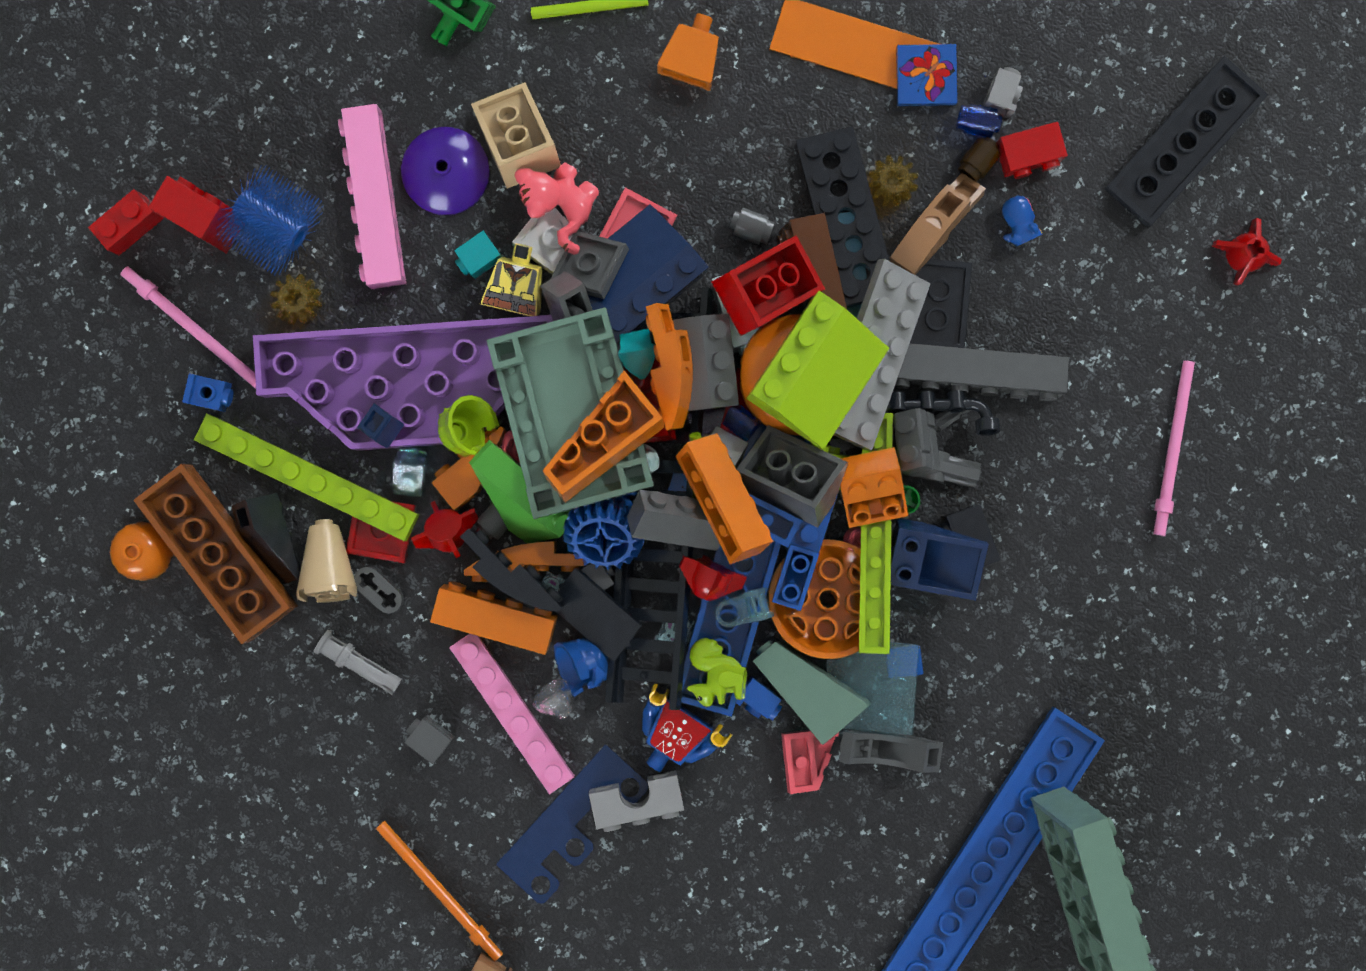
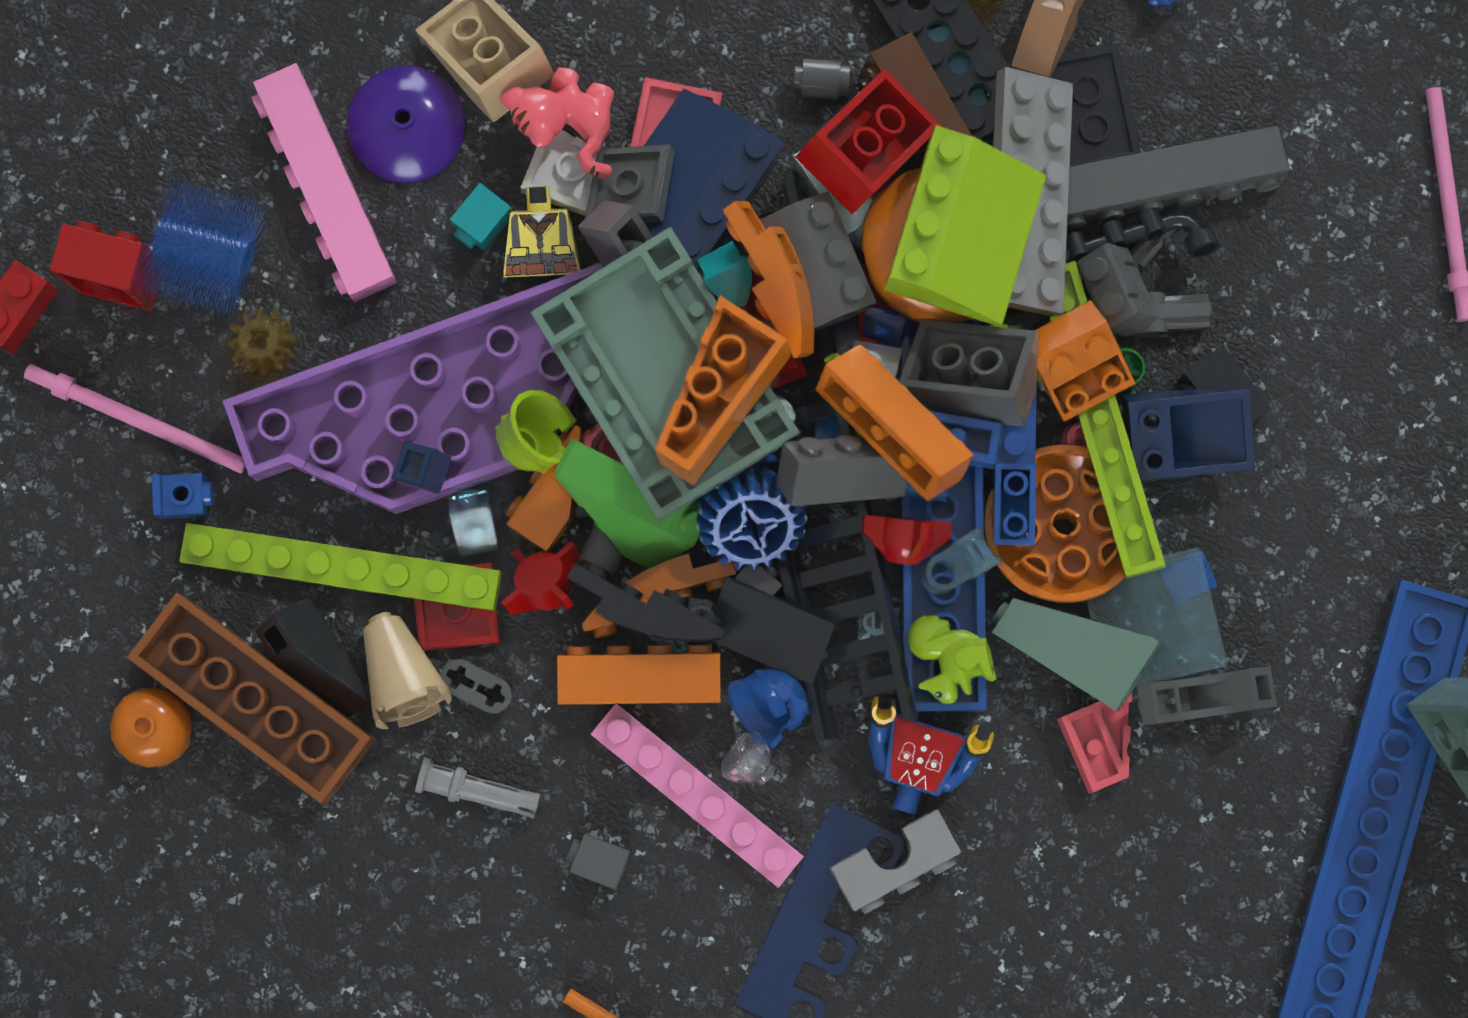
camera: 10 degrees left, 5 degrees down
(760, 700) = (1016, 682): blue brick -> none

